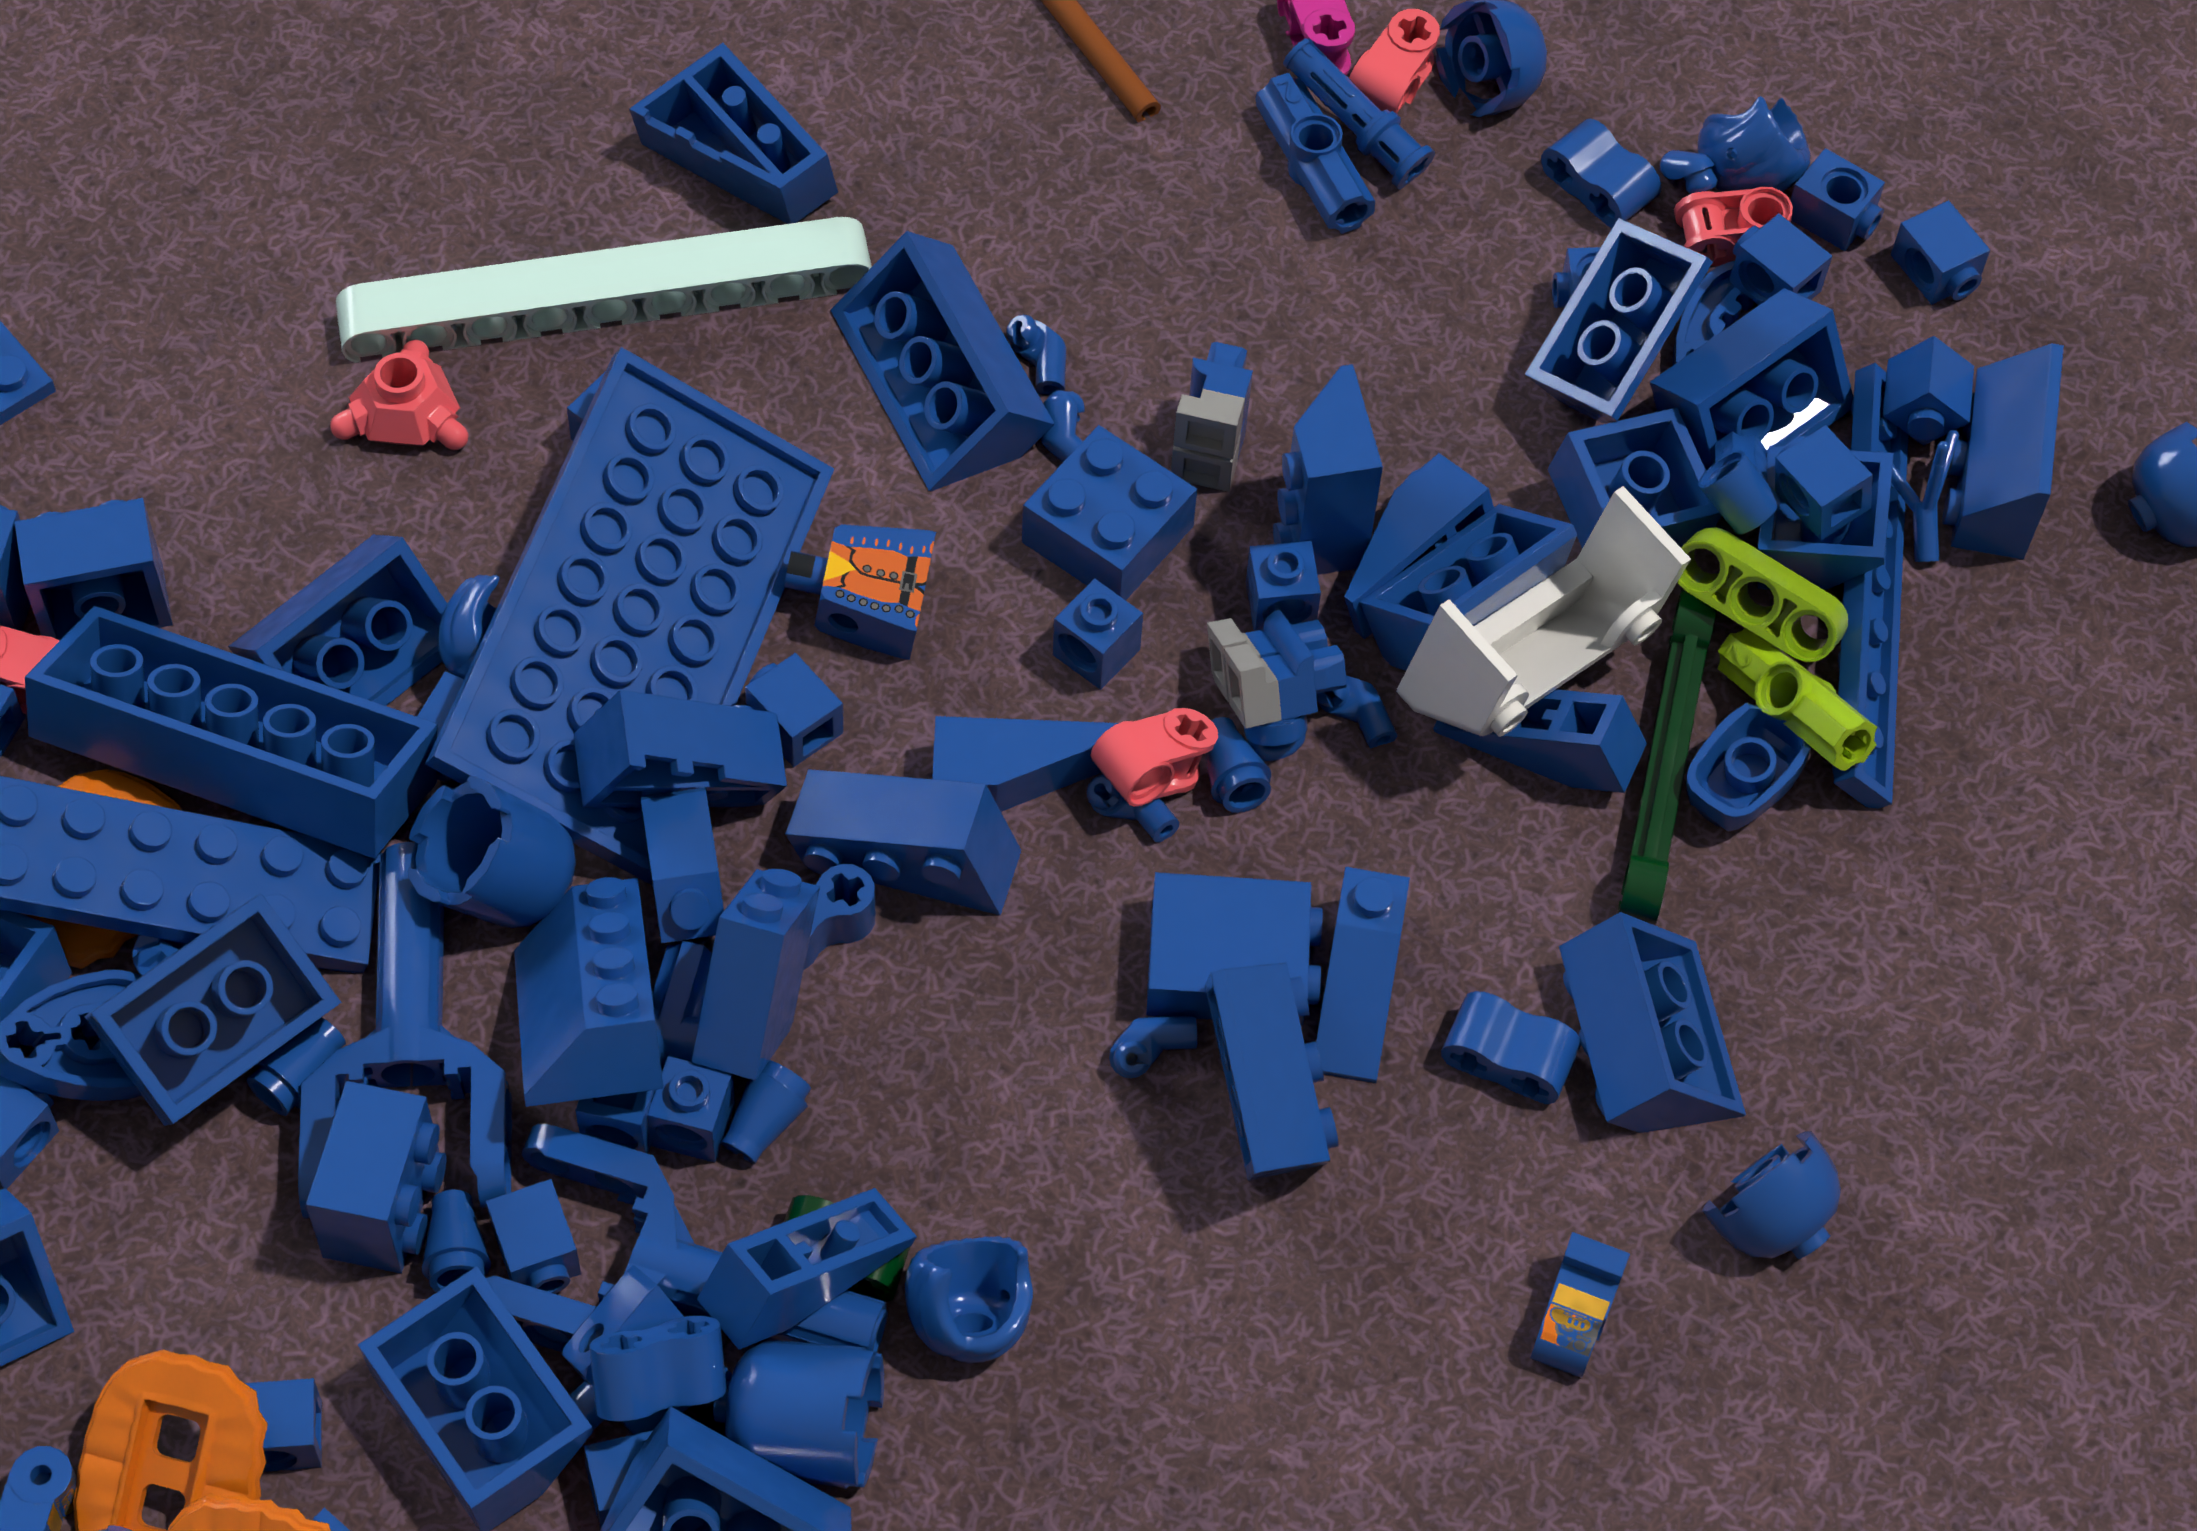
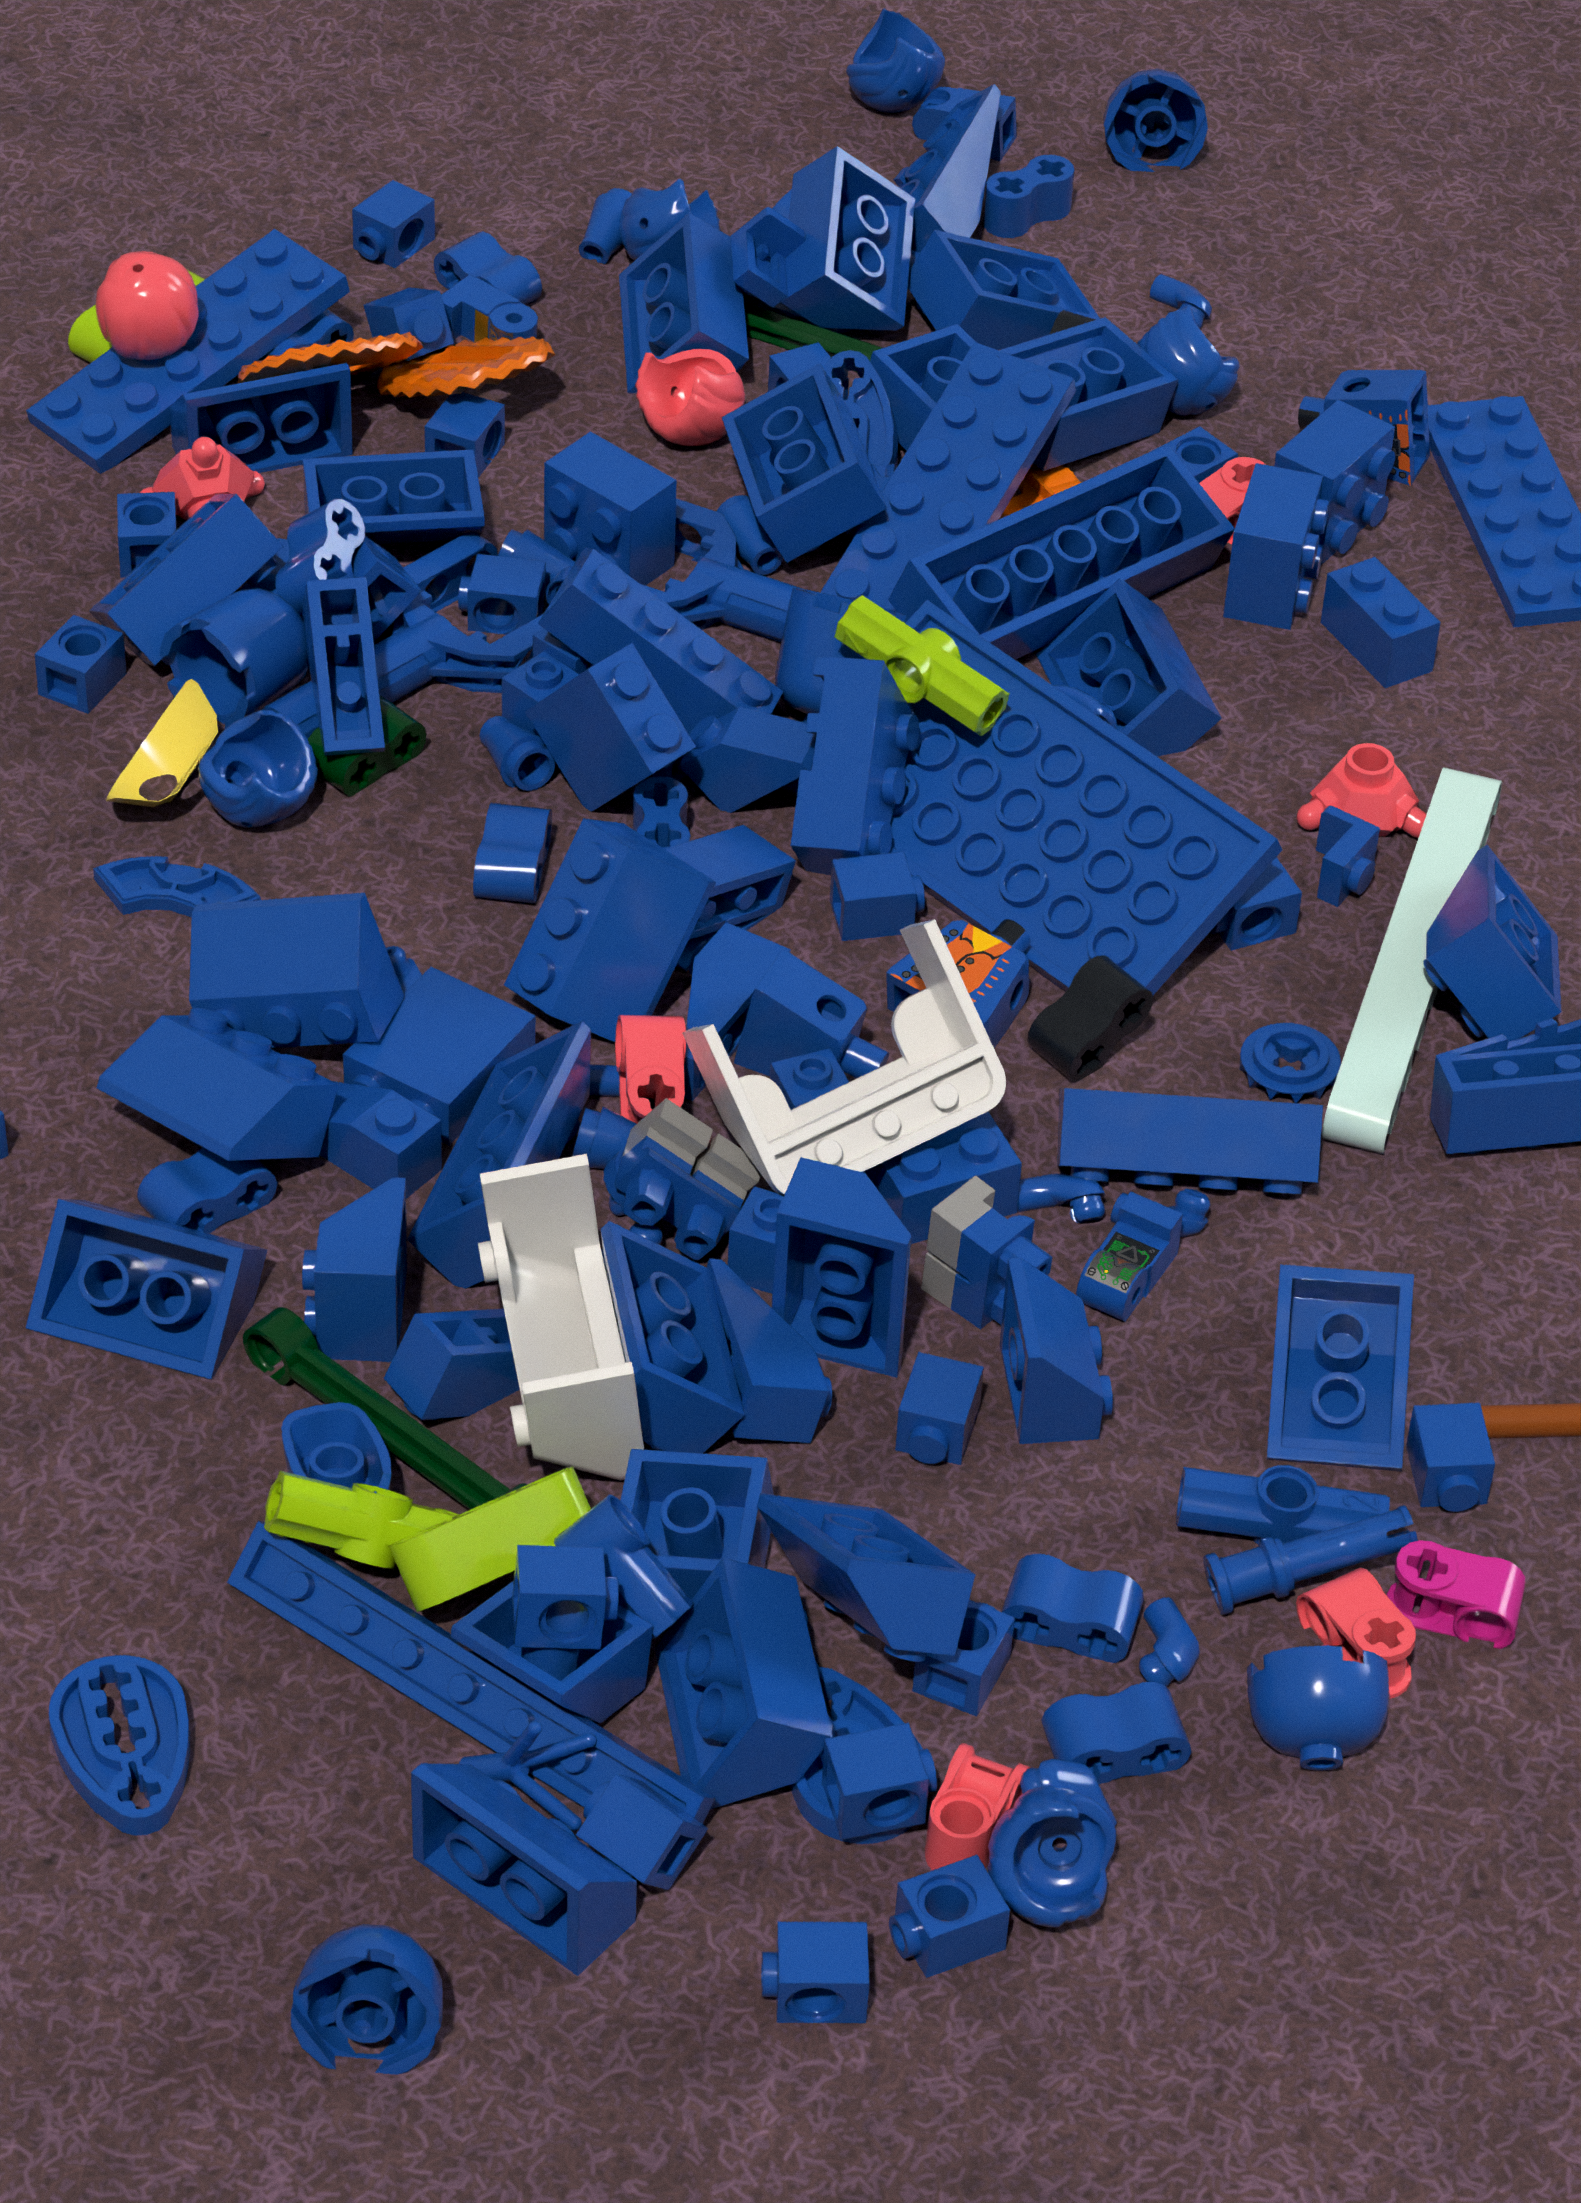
camera: 120 degrees right, 15 degrees down
(110, 1215) = (689, 395): none -> coral piece
(147, 458) = (1380, 622): none -> blue brick
(508, 374) = (1348, 857): none -> blue bracket
(547, 710) = (923, 665): none -> lime piece
(604, 205) = (1495, 952): none -> blue slope
(787, 315) = (1292, 1042): none -> blue gear
(859, 472) = (1090, 1018): none -> black axle
(916, 1034) = (512, 853): none -> blue axle
(1023, 645) = (801, 1013): none -> blue torso
(1032, 847) = (609, 928): none -> blue slope
(1049, 1392) = (171, 747): none -> light yellow piece
(1119, 348) = (1131, 1257): none -> blue leg
(1126, 531) = (936, 1085): none -> white windscreen
(1136, 1315) = (168, 885): none -> blue tile
(1137, 167) = (1340, 1367): none -> blue slope
(1186, 70) = (1450, 1455): none -> blue brick
(1293, 337) = (1051, 1360): none -> blue slope
(1342, 796) = (518, 1120): none -> blue slope
(1390, 397) = (939, 1409): none -> blue brick
(1432, 1061) = (223, 1088): none -> blue slope
(1481, 176) = (1175, 1645): none -> blue arm
(1505, 244) = (1073, 1607): none -> blue axle
(1552, 837) = (359, 1276): none -> blue slope
(2104, 814) = (88, 1747): none -> blue piece

